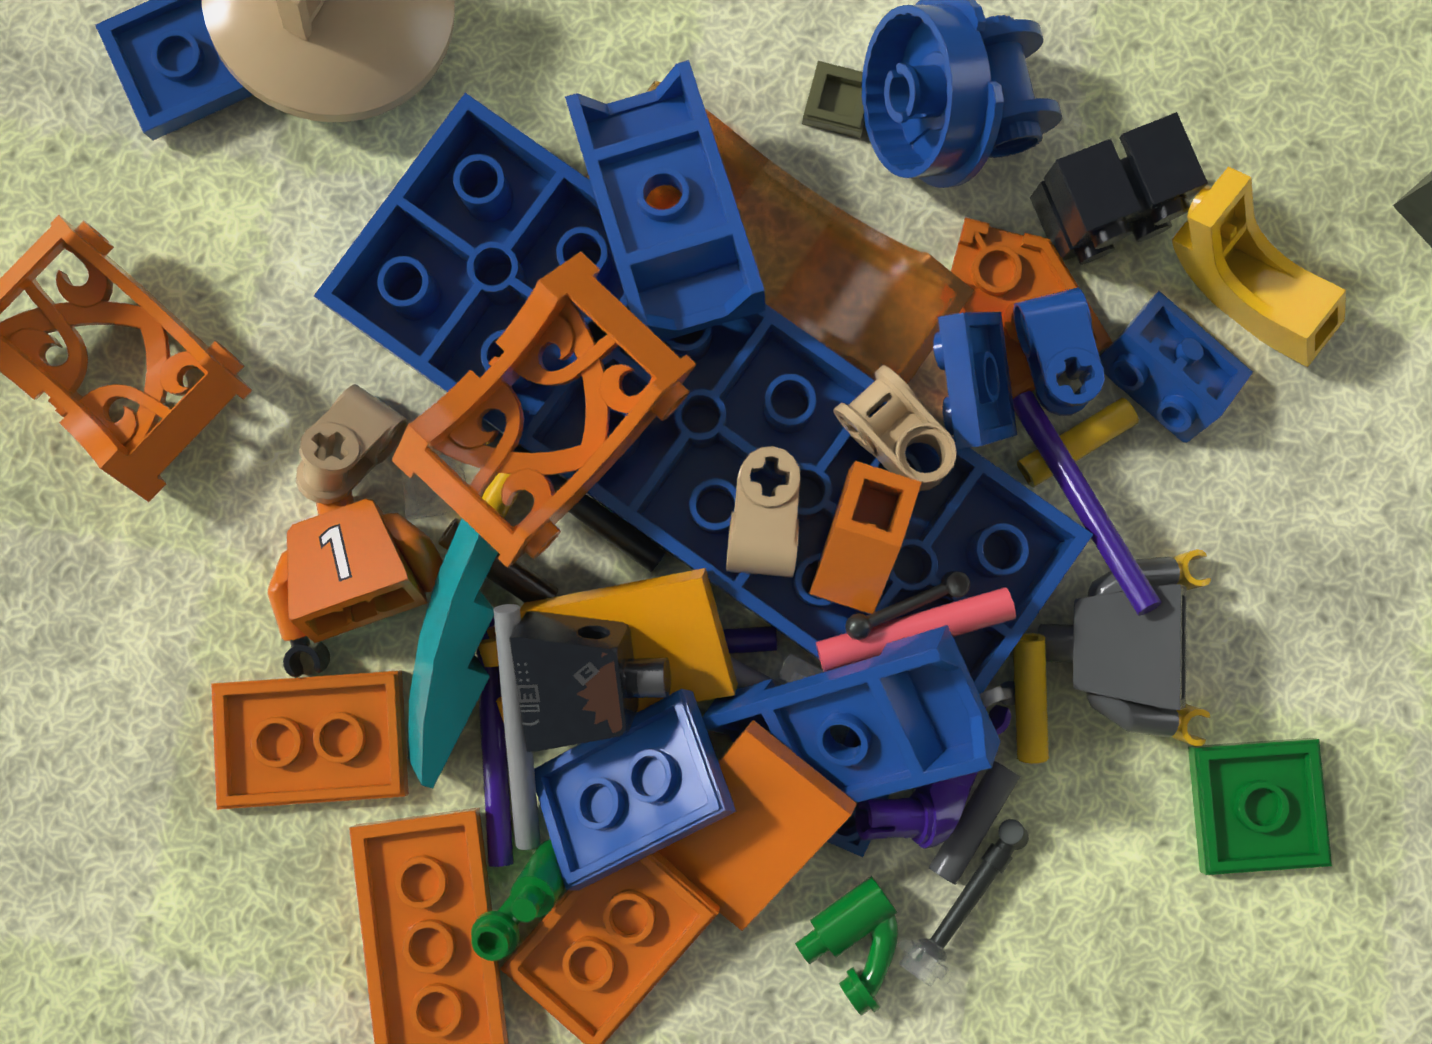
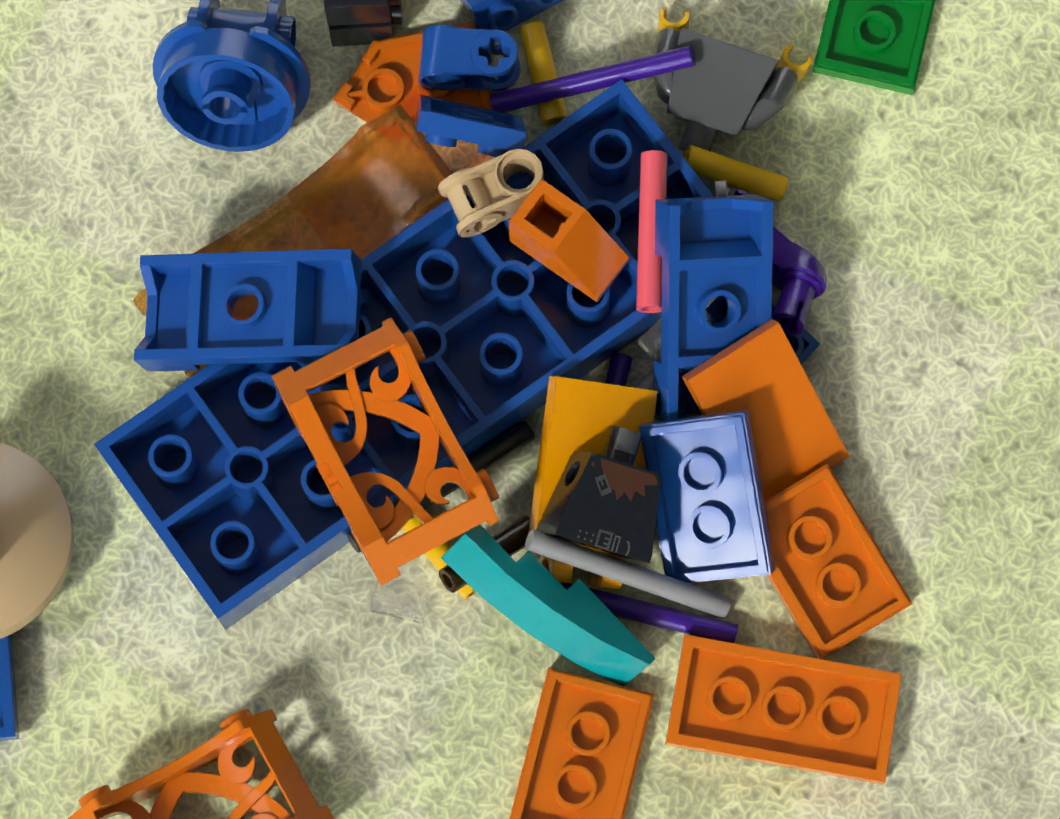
camera: 75 degrees left, 10 degrees down
(347, 445) = (346, 645): tan piece -> none
(347, 573) = (453, 674): orange torso -> none
(531, 896) = (763, 600): green plant -> none
(764, 527) = (529, 315): tan piece -> none
(835, 100) = (197, 168): olive tile -> none
(843, 925) = (863, 360): green plant -> none
(926, 956) = (914, 318): pearl dark grey piece -> none
(952, 584) = (626, 193): pearl dark grey hinge -> none
(974, 823) = (809, 237): dark grey piece -> none

